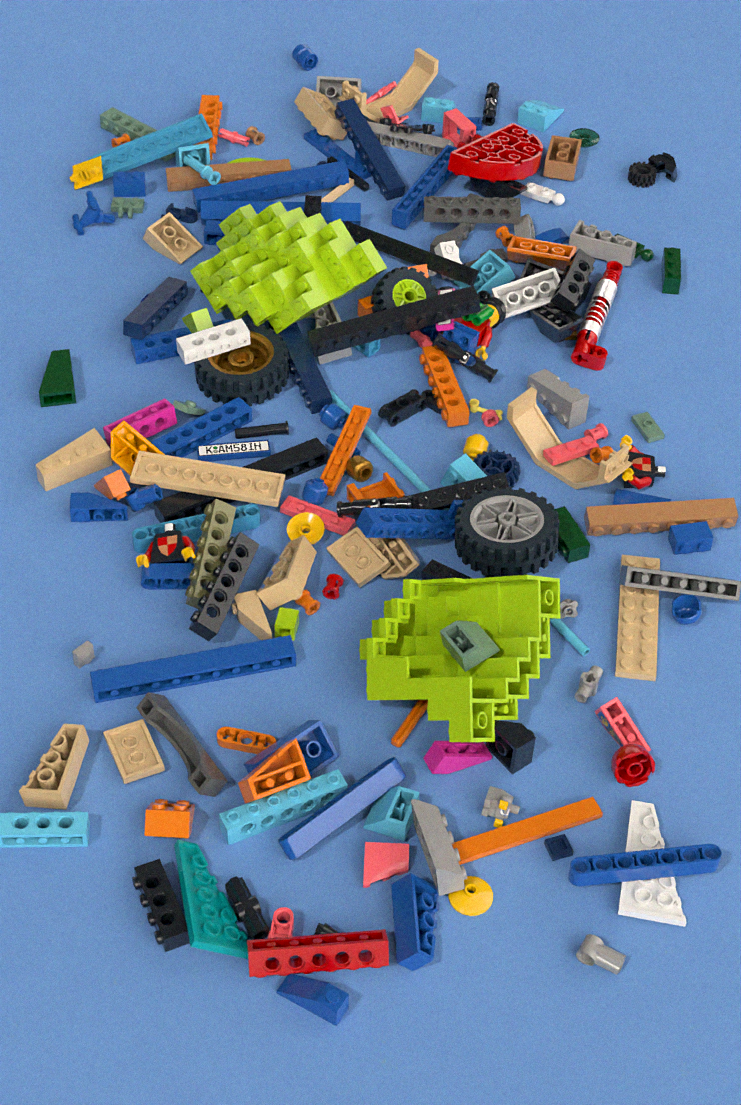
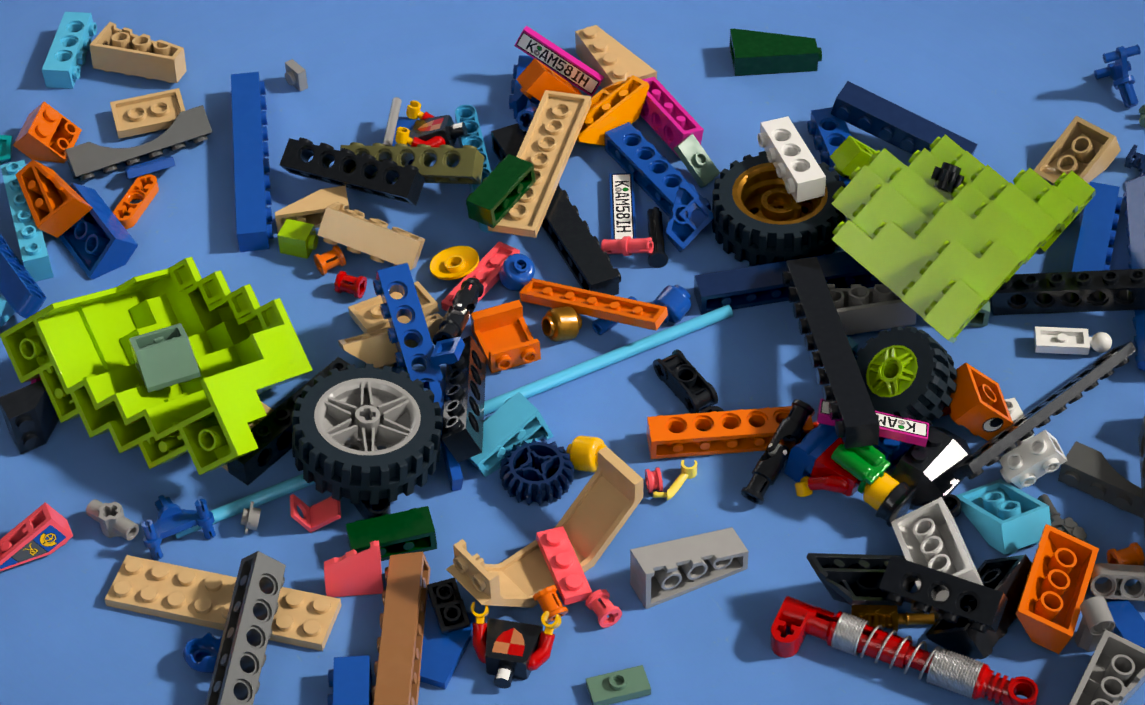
camera: 100 degrees right, 0 degrees up
(82, 481) = (559, 61): none -> tile
(159, 574) = (392, 121): none -> light grey piece
(207, 735) = (149, 166): none -> blue tile
(252, 488) = (500, 190): none -> dark green brick
(255, 254) = (947, 177): none -> black gear
(263, 408) = (686, 217): none -> blue slope
(279, 438) = (627, 245): none -> coral pin
(423, 498) = (447, 351): none -> blue plate
(555, 570) = (316, 515): none -> coral bracket
(563, 235) = (1093, 623): none -> light grey piece
(585, 646) = (174, 520): none -> blue axle
(605, 552) = (355, 573): none -> coral slope
(620, 496) = (448, 605): none -> black slope

